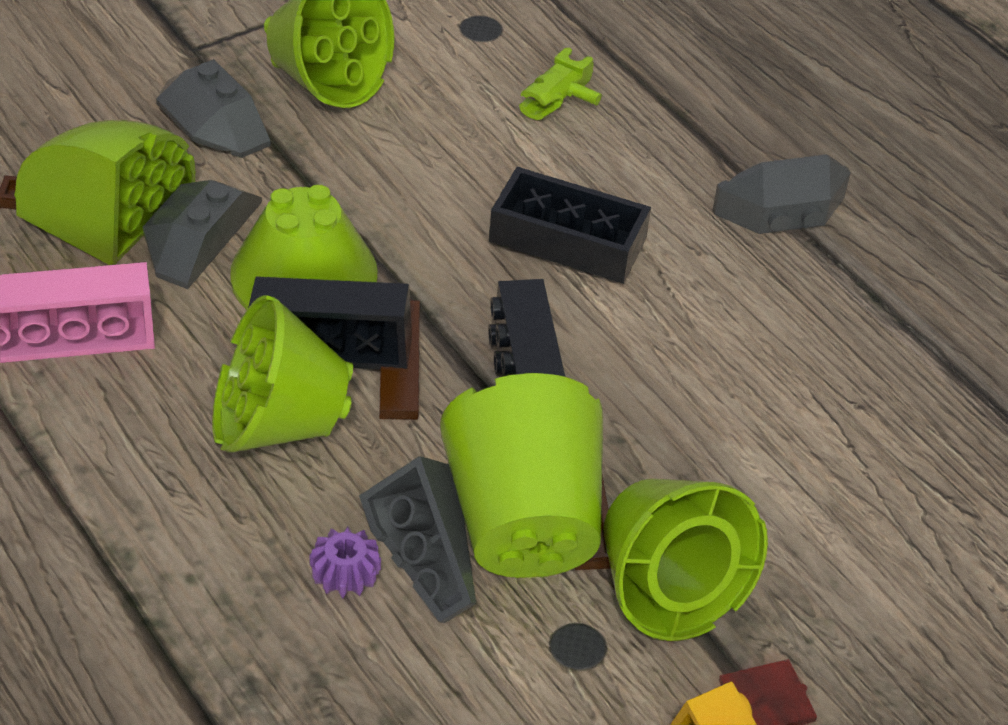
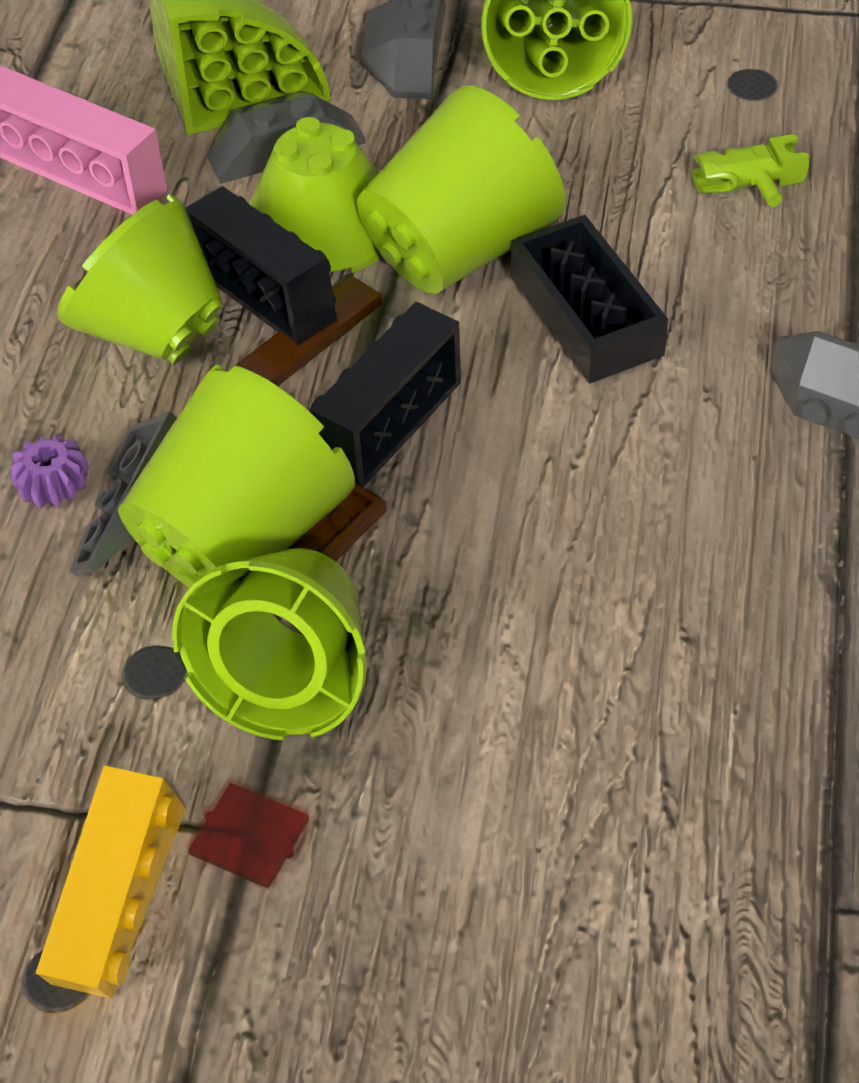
camera: 50 degrees right, 5 degrees up
(427, 190) = (460, 191): none -> lime cone

